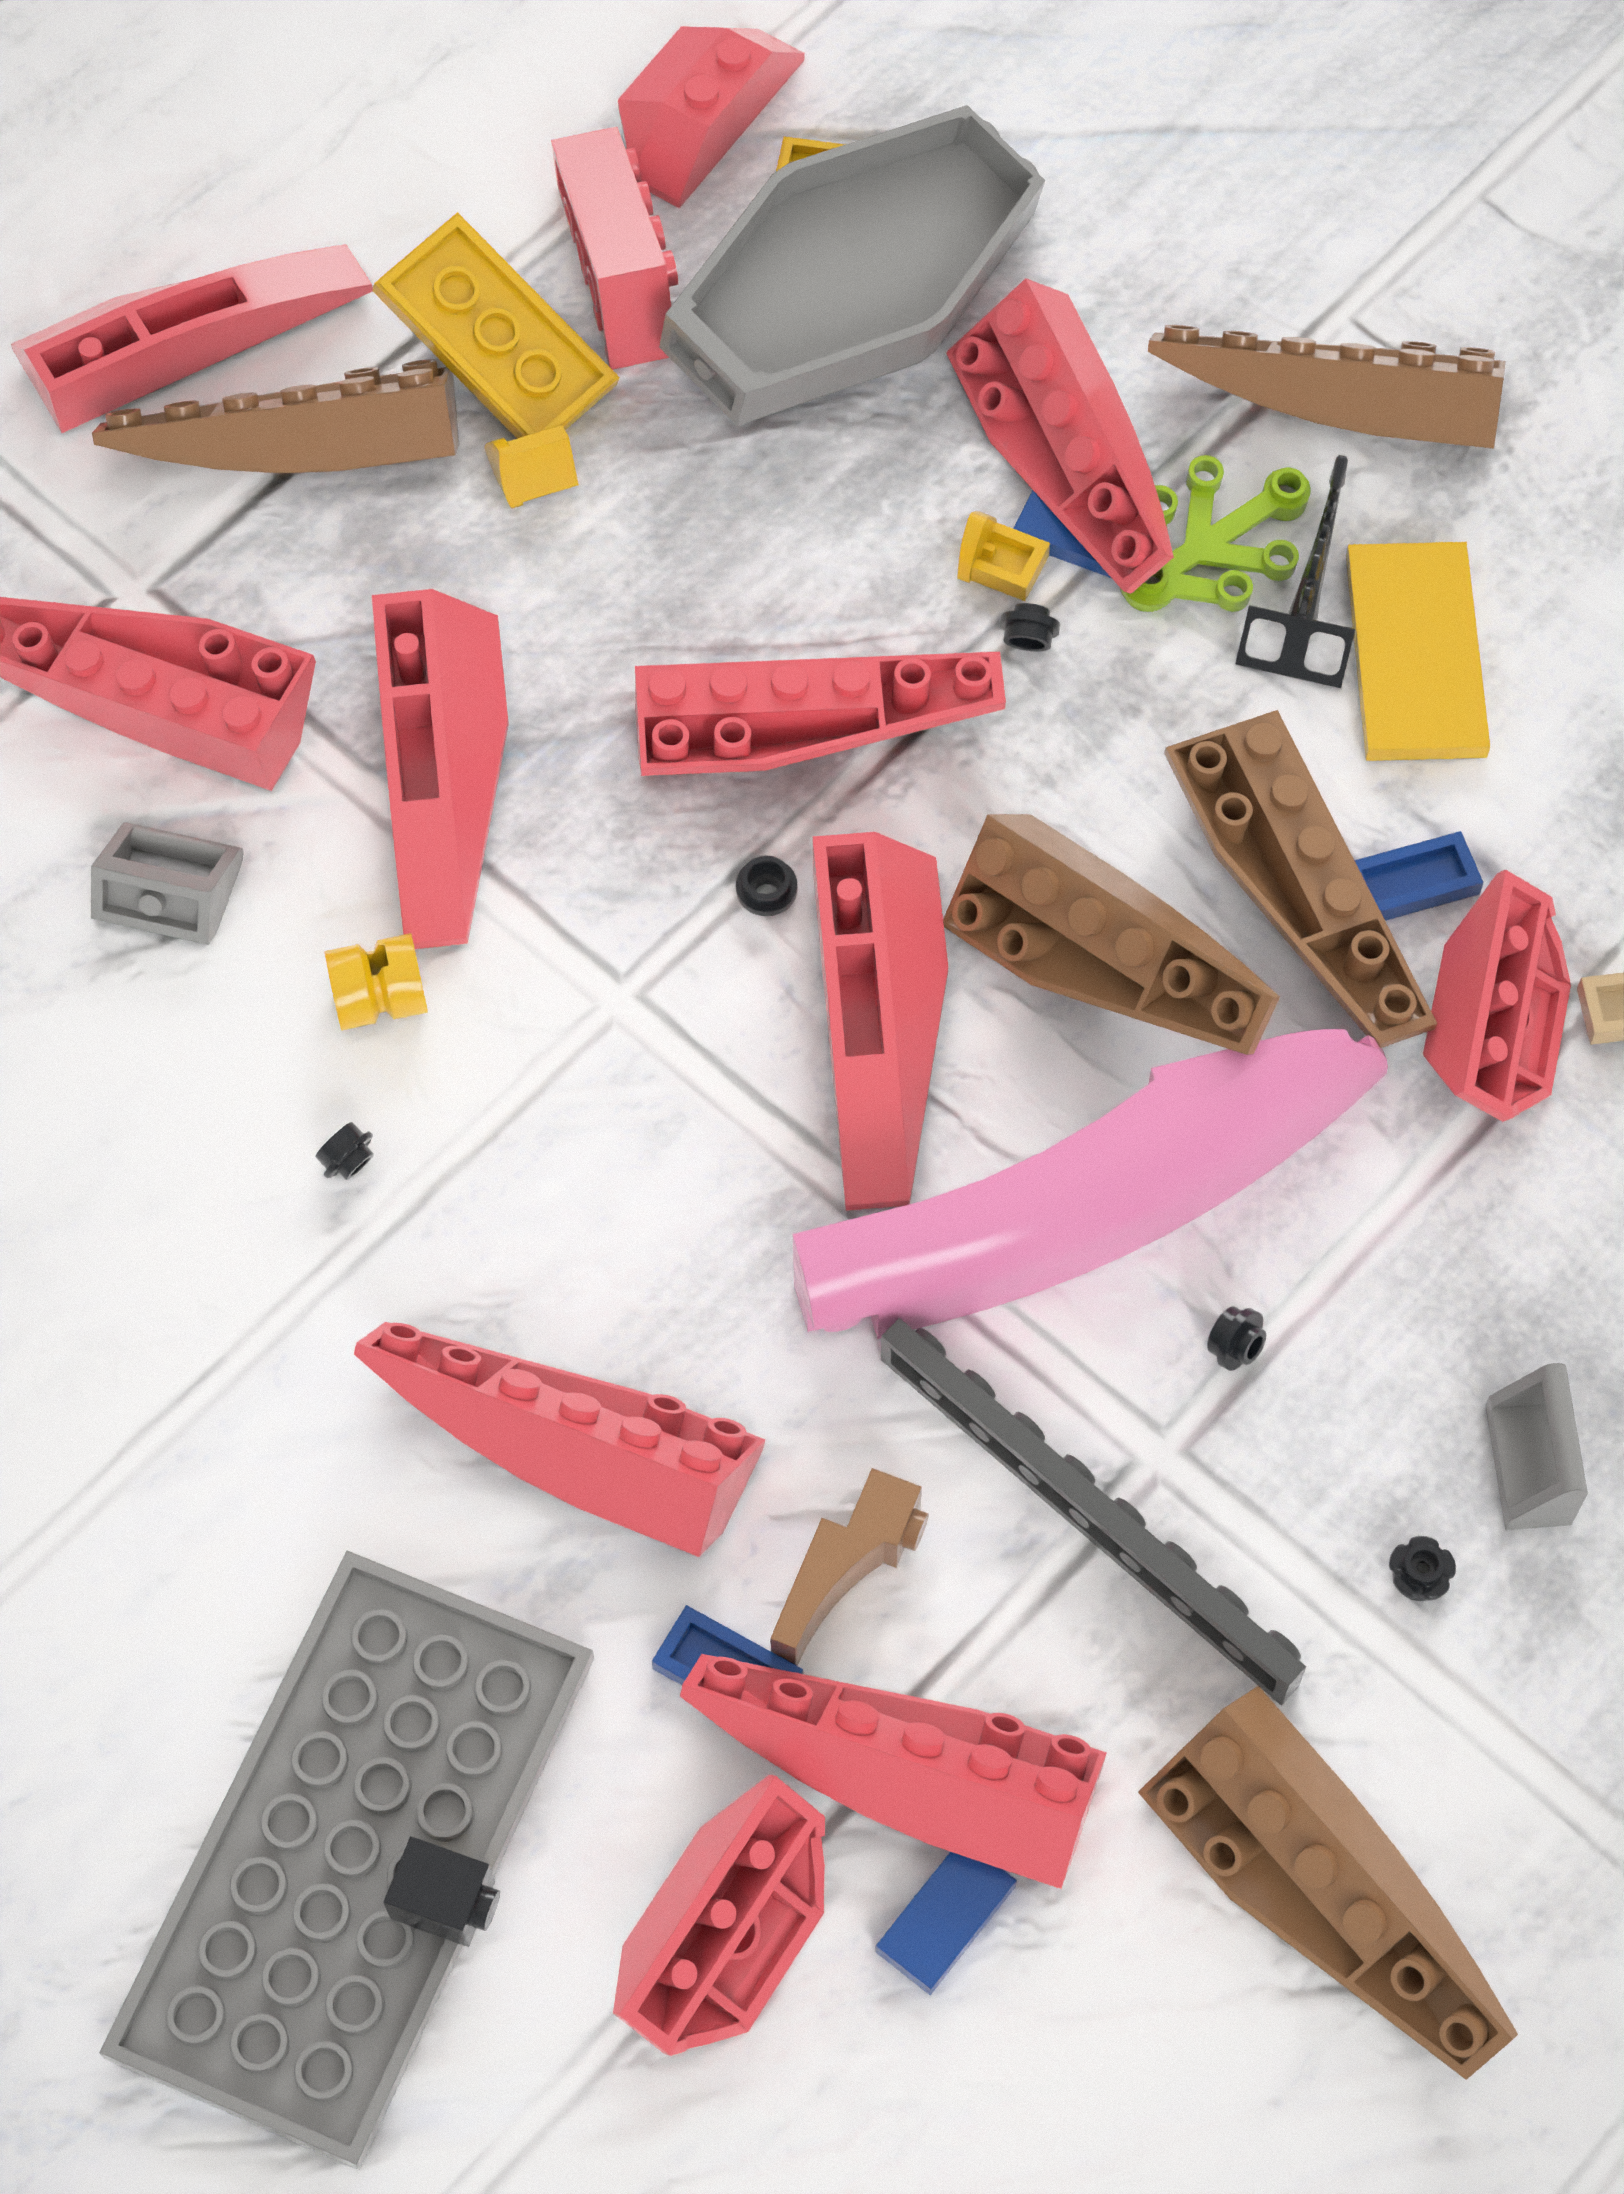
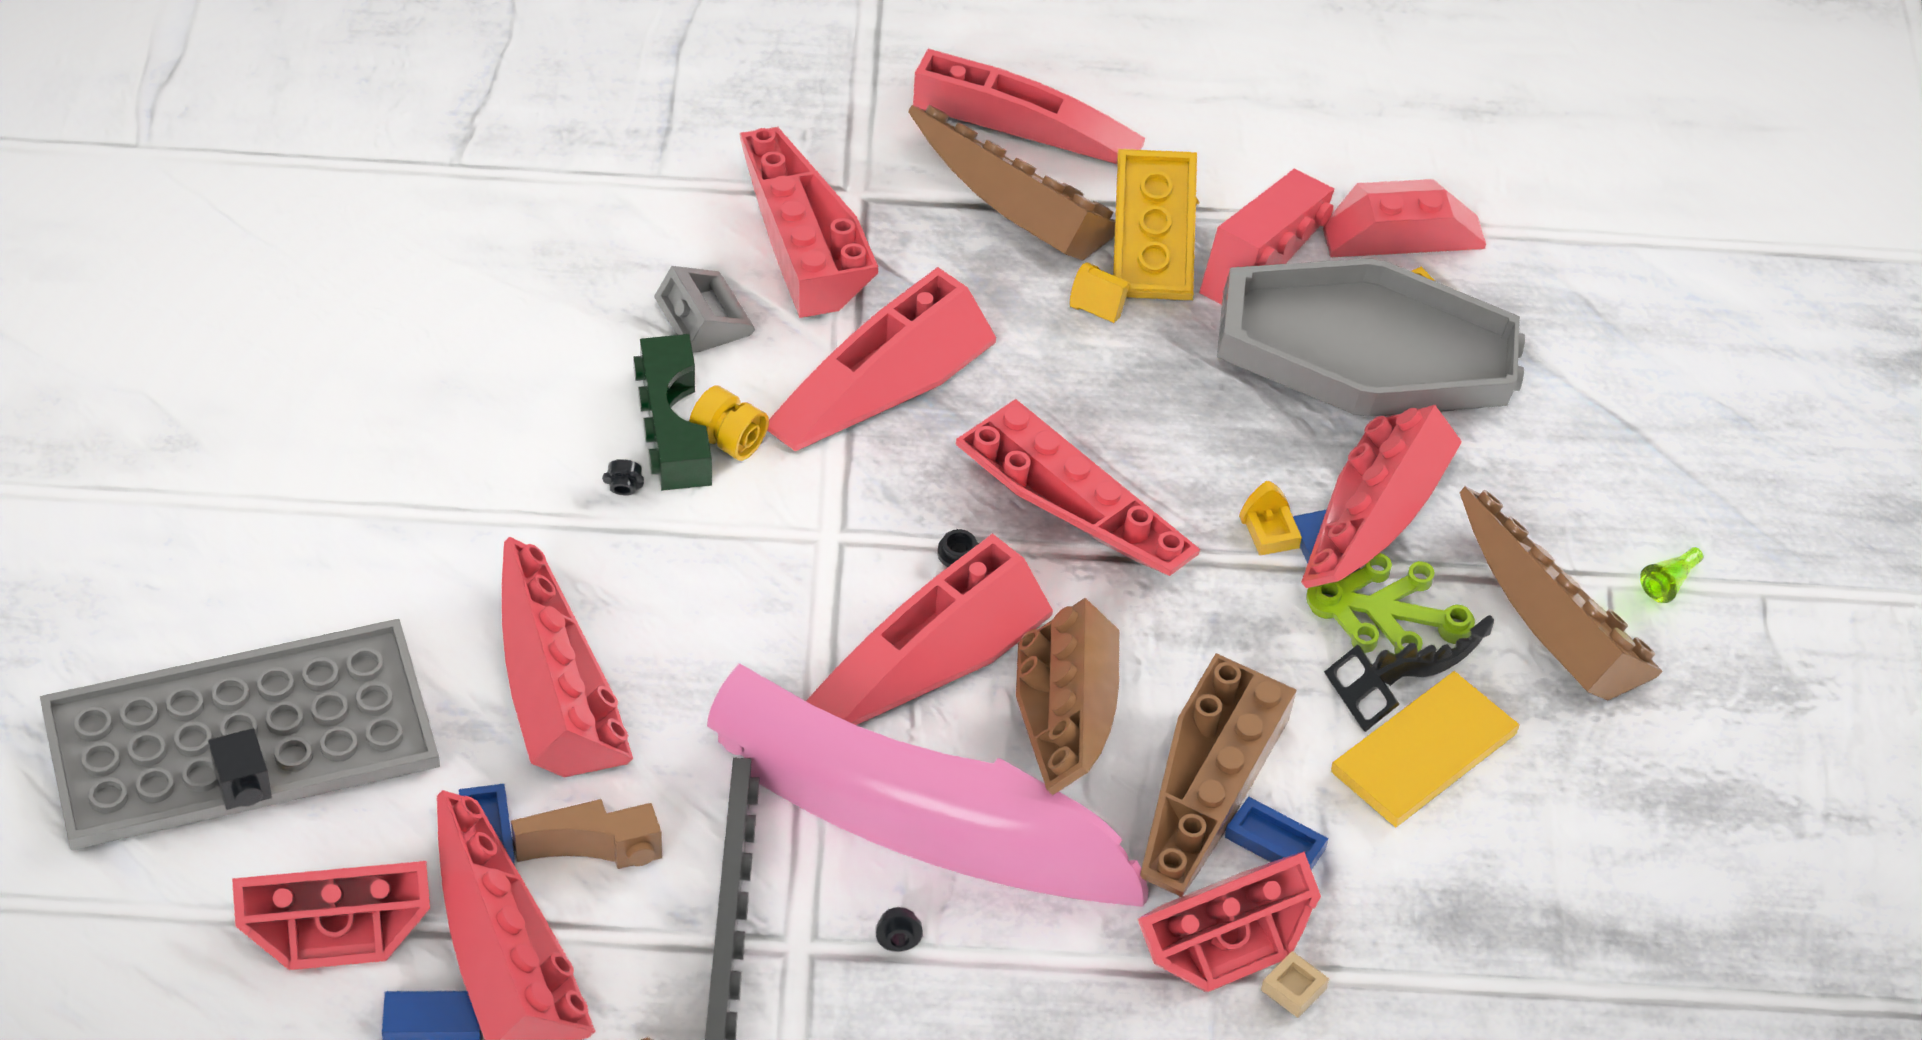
camera: 45 degrees right, 15 degrees down
(364, 1063) = (680, 447): none -> dark green arch
(1029, 627) = (1237, 560): black plate -> none
(1397, 260) = (1665, 578): none -> clear neon green cone

